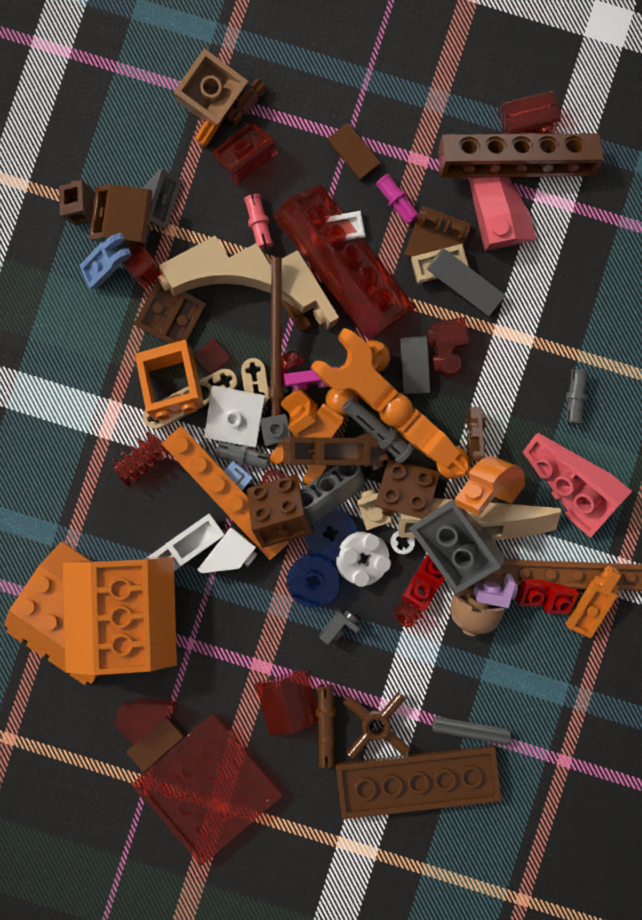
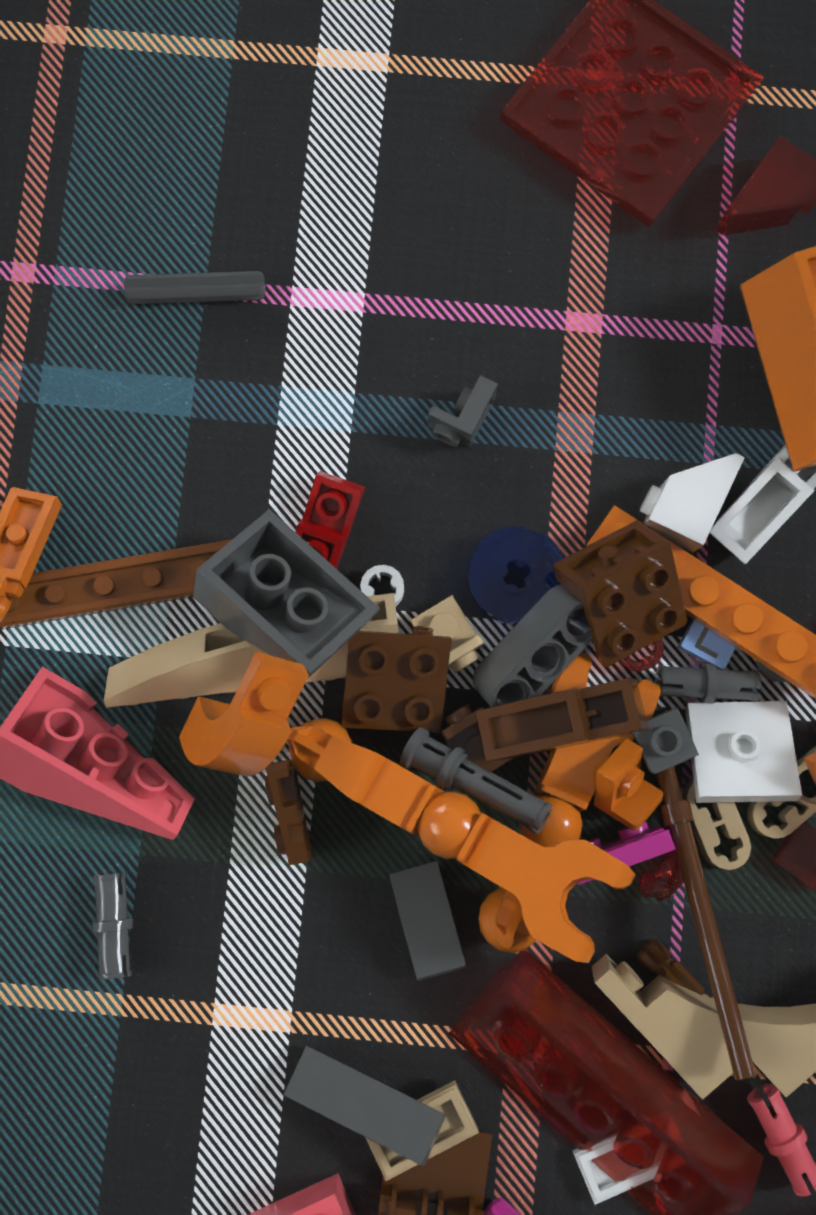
camera: 165 degrees right, 5 degrees down
(155, 743) = (737, 155): reddish brown tile -> none
(287, 702) = (524, 268): clear red slope -> none
(321, 593) = (522, 509): clear blue plate -> none
(326, 714) = (454, 261): reddish brown pin -> none
(376, 564) = (426, 526): white plate -> none
(384, 732) = (363, 243): reddish brown bar -> none
(407, 614) = (347, 461): clear red plate -> none
(418, 782) = (271, 182): reddish brown plate -> none
(445, 337) = (380, 987): clear red brick -> none
(474, 616) = (224, 488): medium nougat cylinder -> none
(494, 594) = (196, 525): lavender bracket -> none
(552, 596) = (94, 546): red slope -> none

